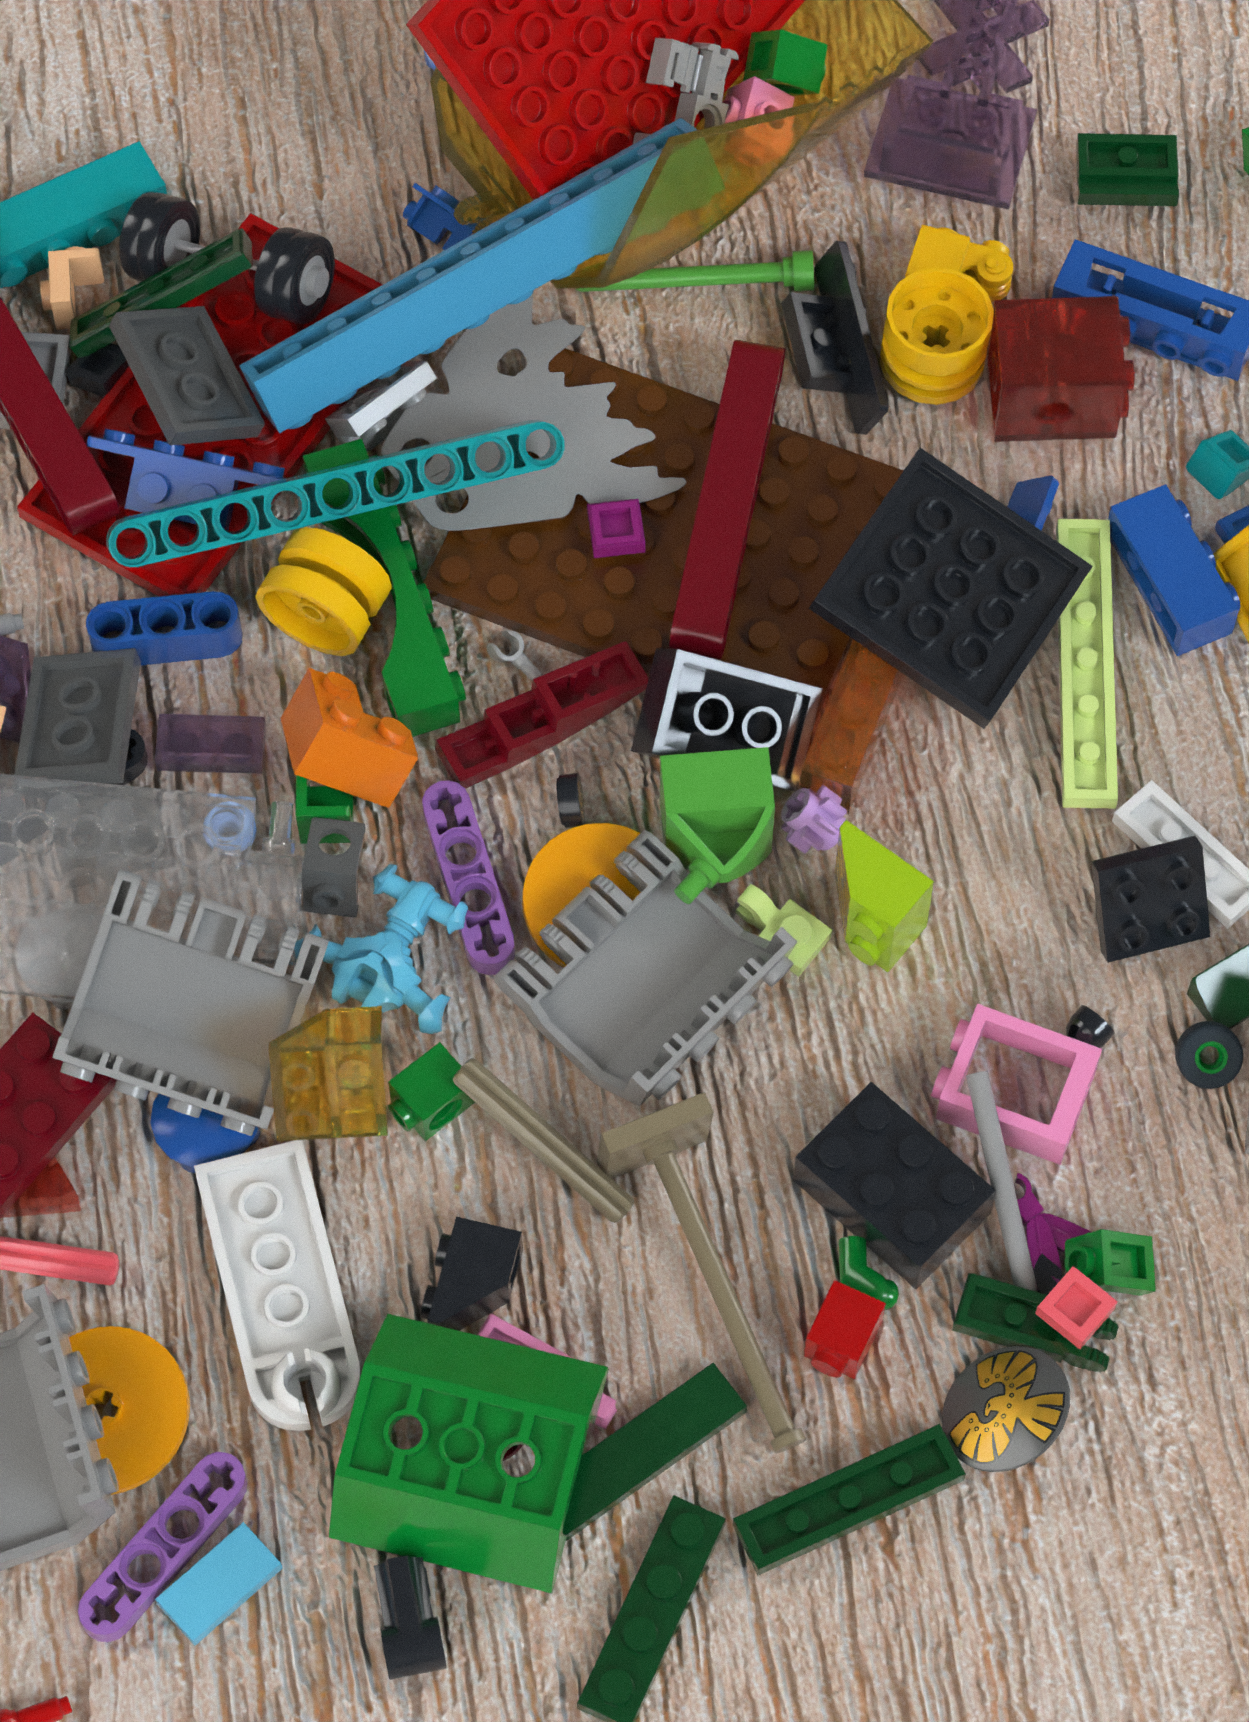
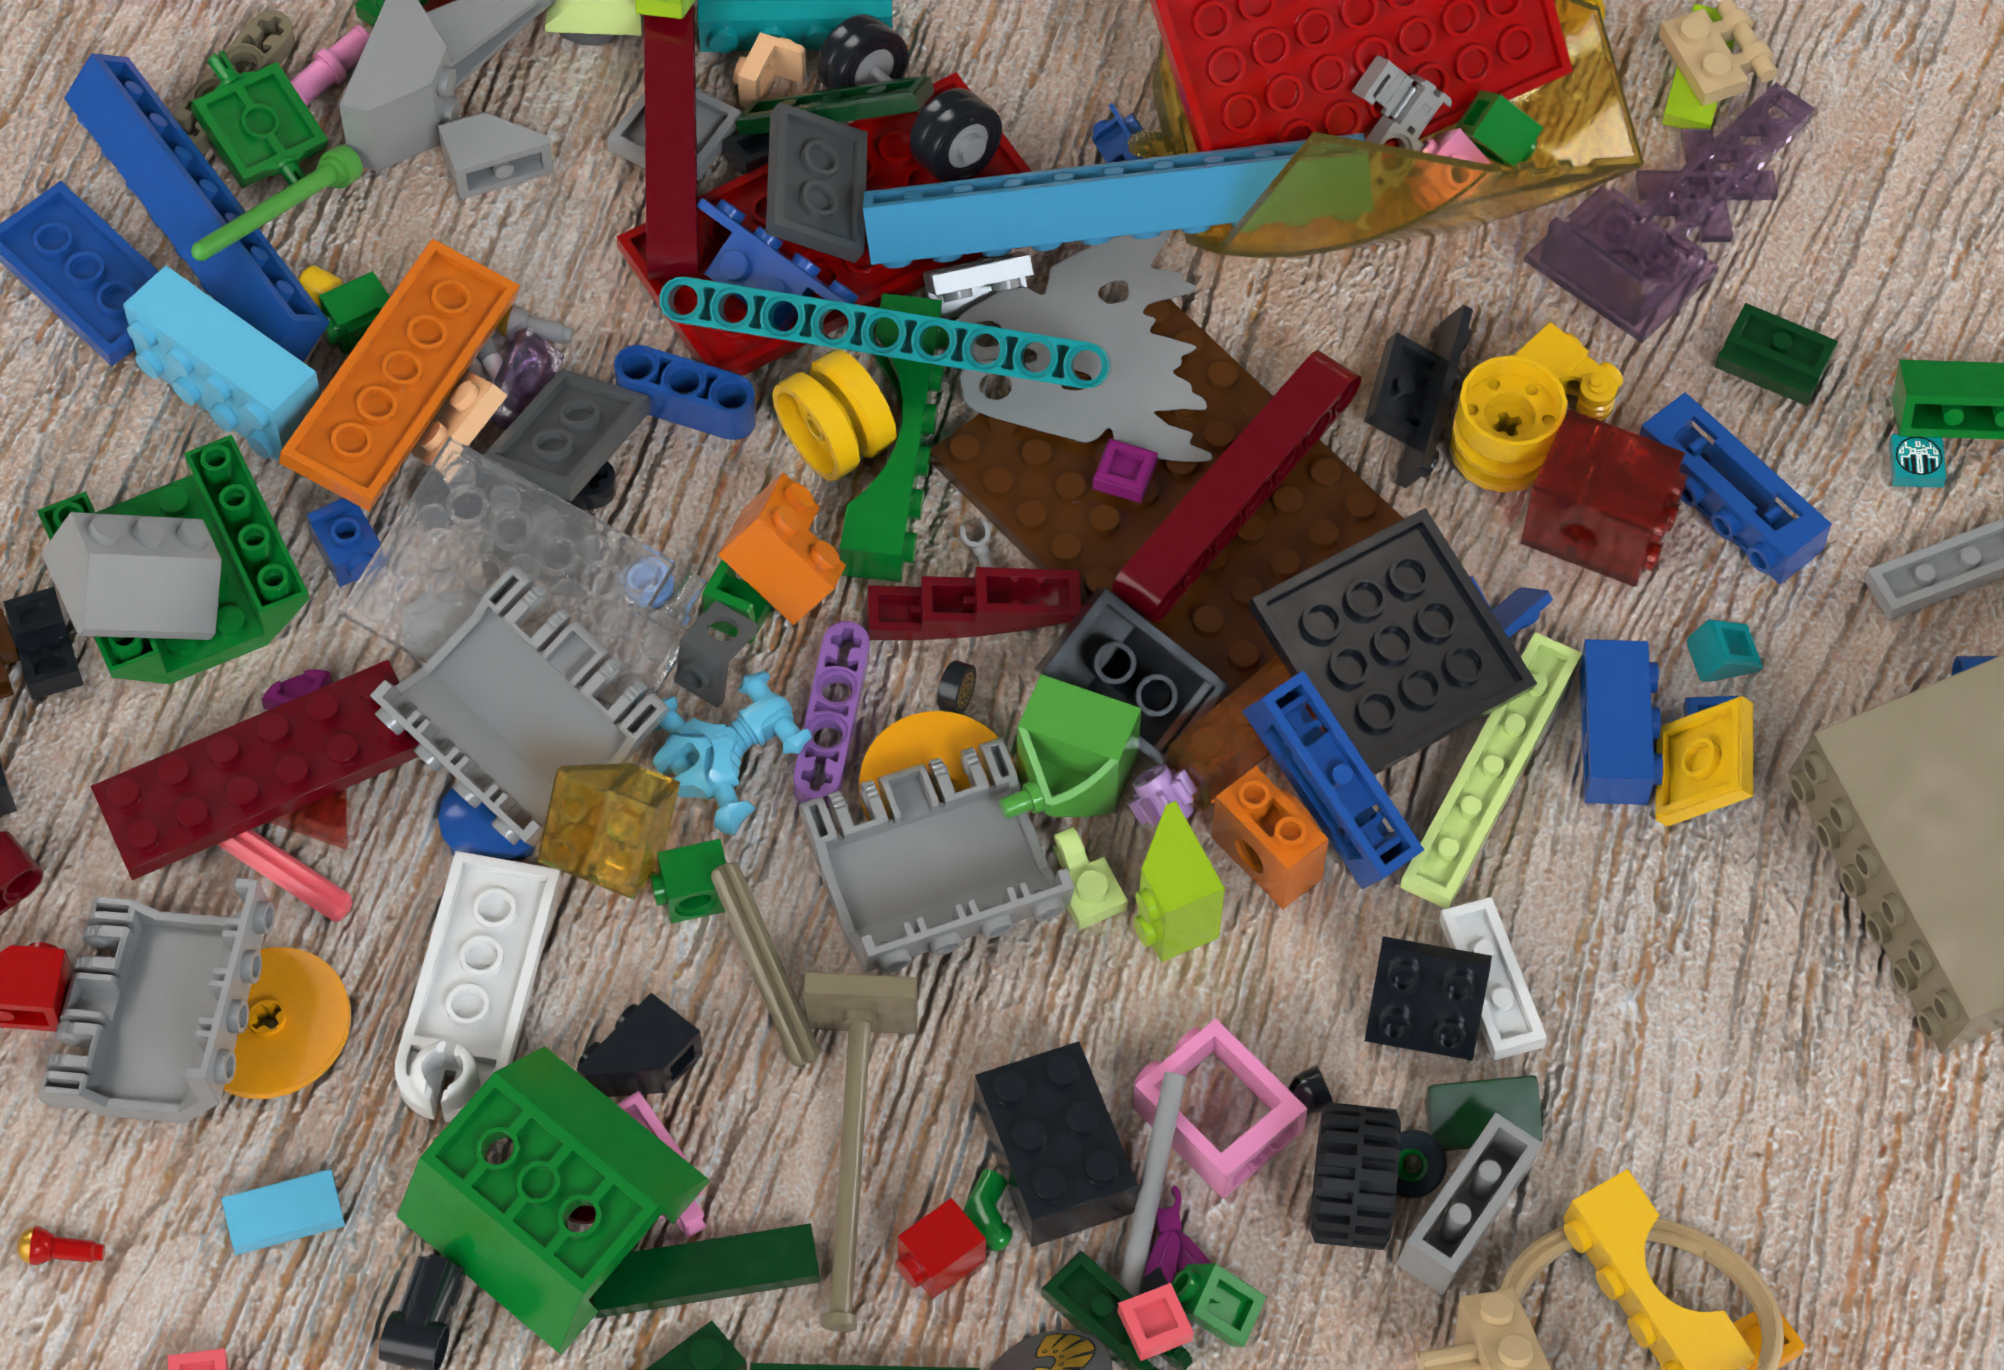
camera: 25 degrees right, 5 degrees down
(156, 1541) = (250, 1149): medium lavender beam -> none
(210, 743) = (671, 505): clear purple plate -> none
(792, 271) = (1417, 318): bright green piece -> none
(931, 813) = (1270, 836): none -> orange brick
(966, 736) = (1333, 780): none -> blue brick
(1181, 1091) = (1355, 1176): none -> black tyre

